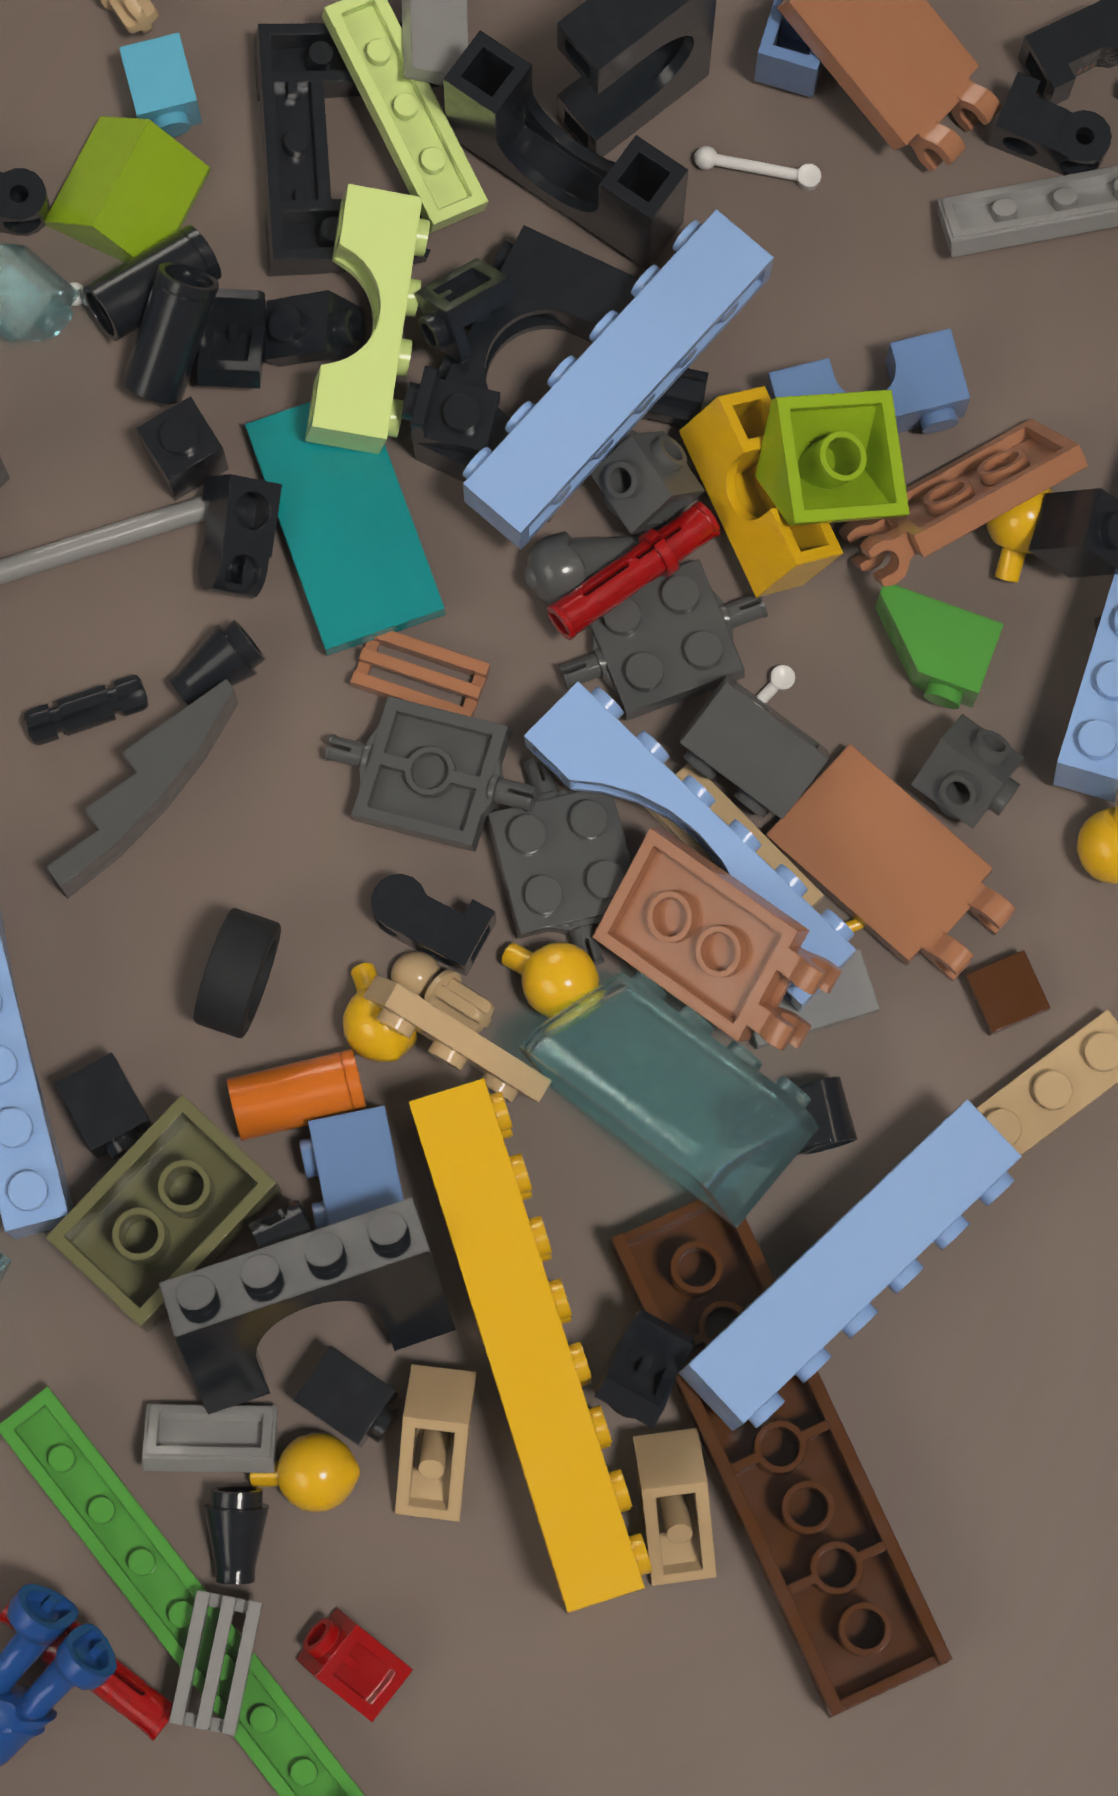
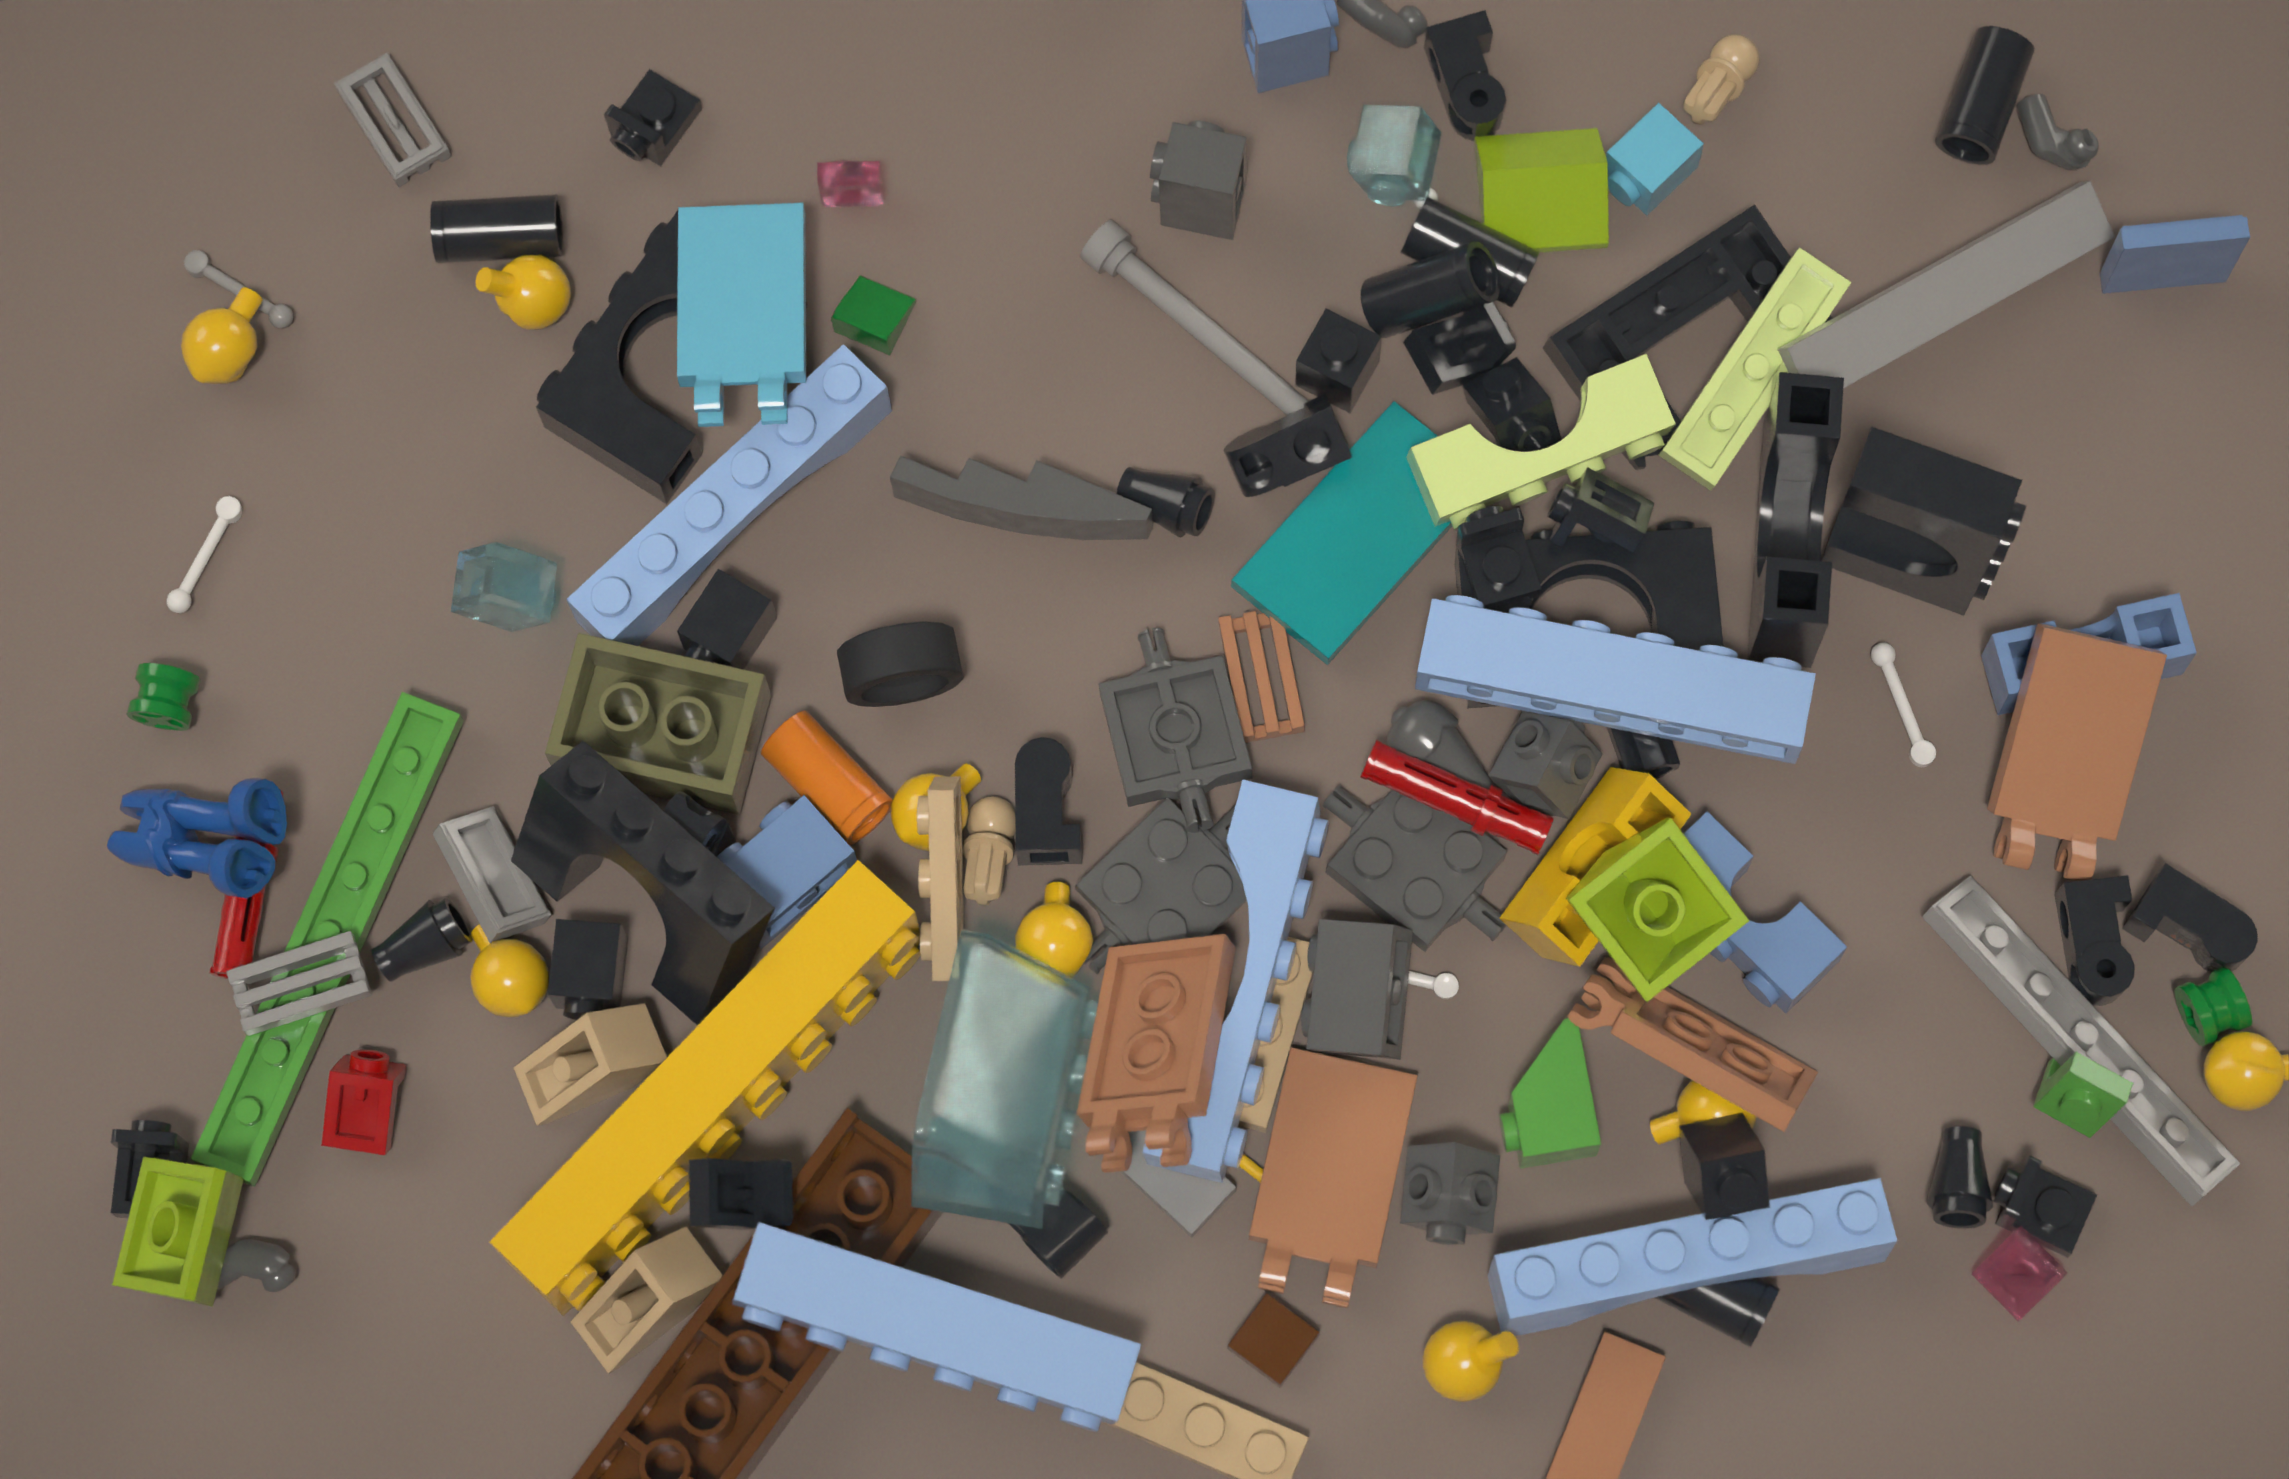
camera: 65 degrees right, 5 degrees down
(86, 710) = (1063, 415): black axle -> none

